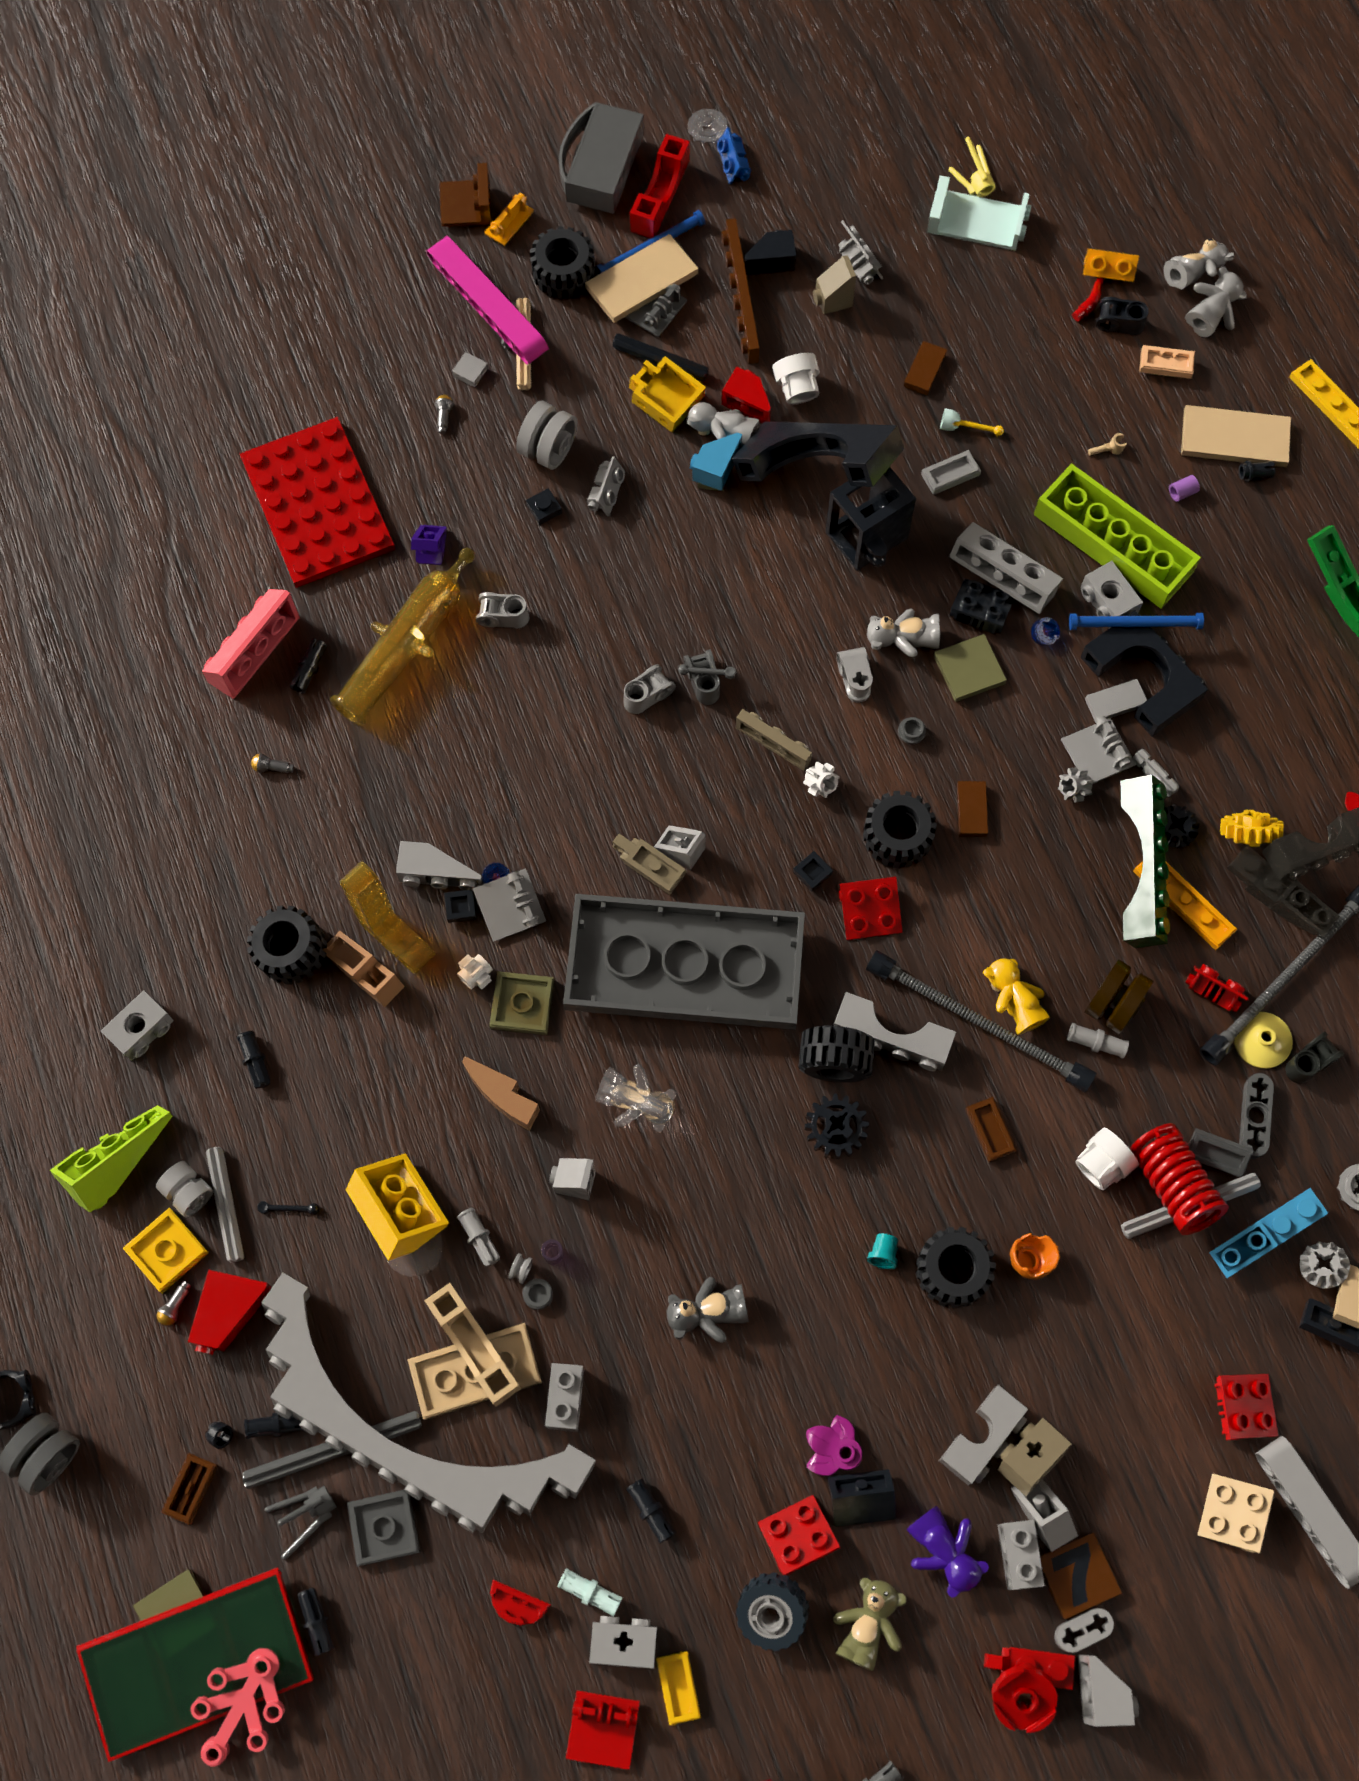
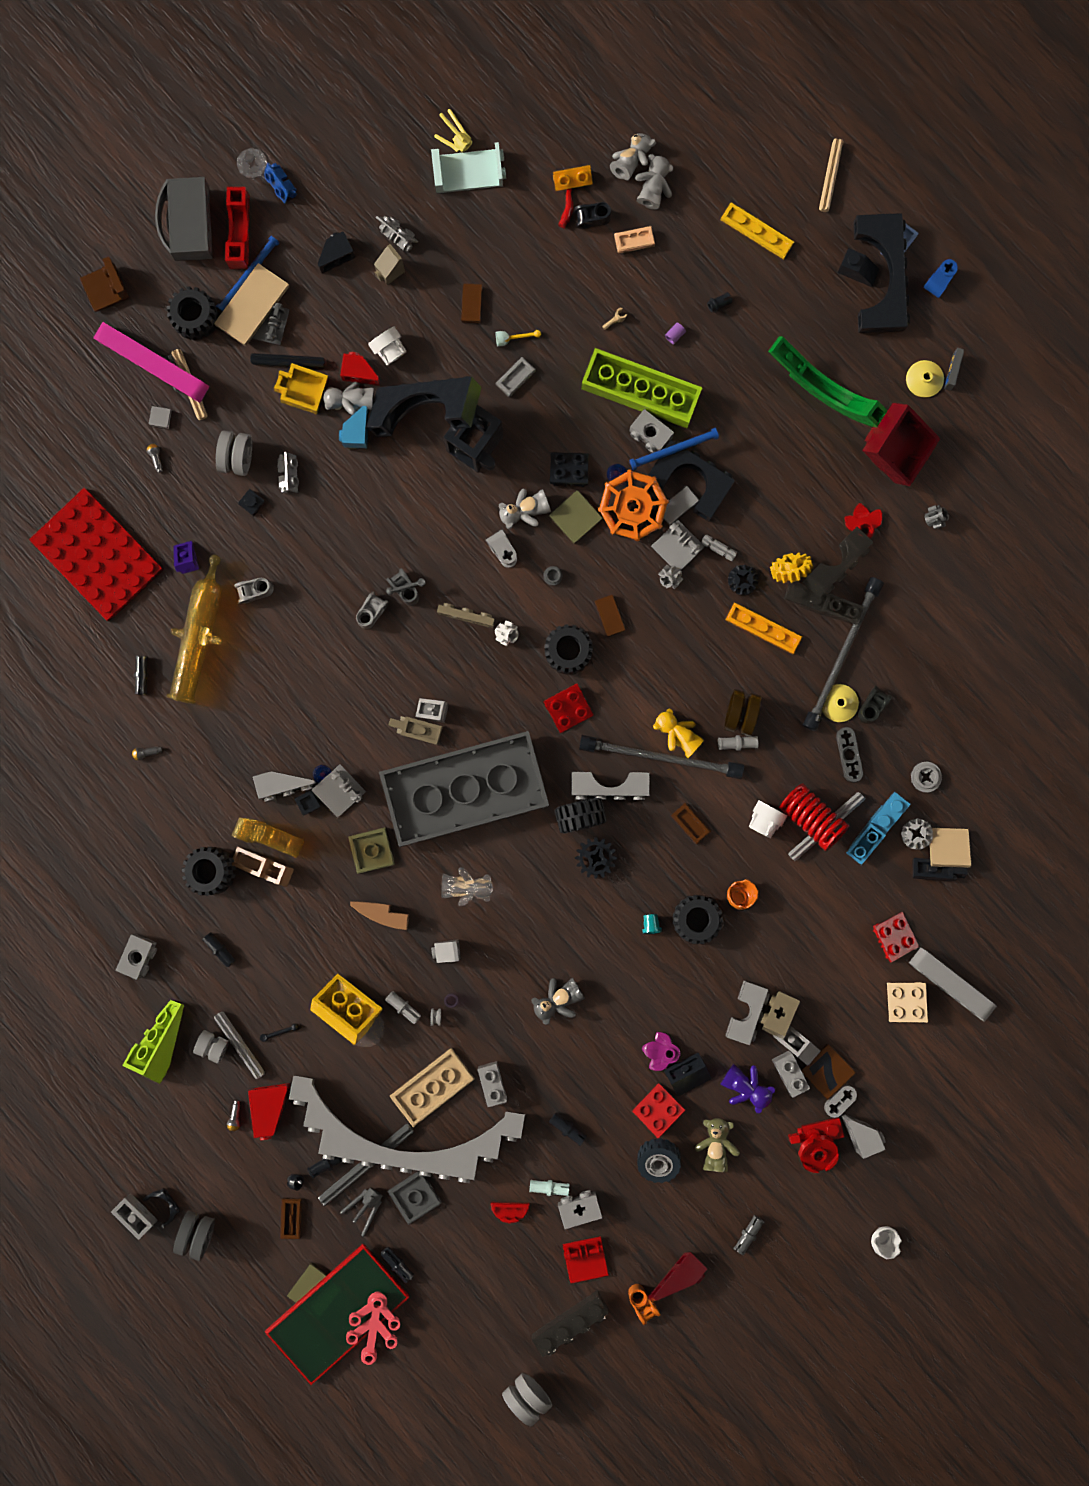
camera: 20 degrees left, 15 degrees up
(165, 1250) = (215, 1086): yellow tile -> none
(251, 642) = (96, 674): coral slope -> none
(473, 1344) = (425, 1074): tan arch -> none
(474, 971) = (334, 843): white gear -> none
(510, 220) = (141, 290): light orange hinge -> none
(538, 1294) = (452, 1027): dark grey tile -> none
(678, 1688) = (619, 1220): yellow tile -> none
(742, 299) = (319, 283): reddish brown plate -> none
(812, 871) = (523, 696): black plate -> none
(1006, 567) = (566, 439): light grey brick -> none
(1059, 690) = (627, 496): none -> orange plate
(1146, 915) = (743, 651): arch -> none
(1220, 1153) = (833, 787): dark grey tile -> none
(1230, 996) = (810, 680): red hinge -> none
(1235, 435) = (697, 280): tan tile -> none

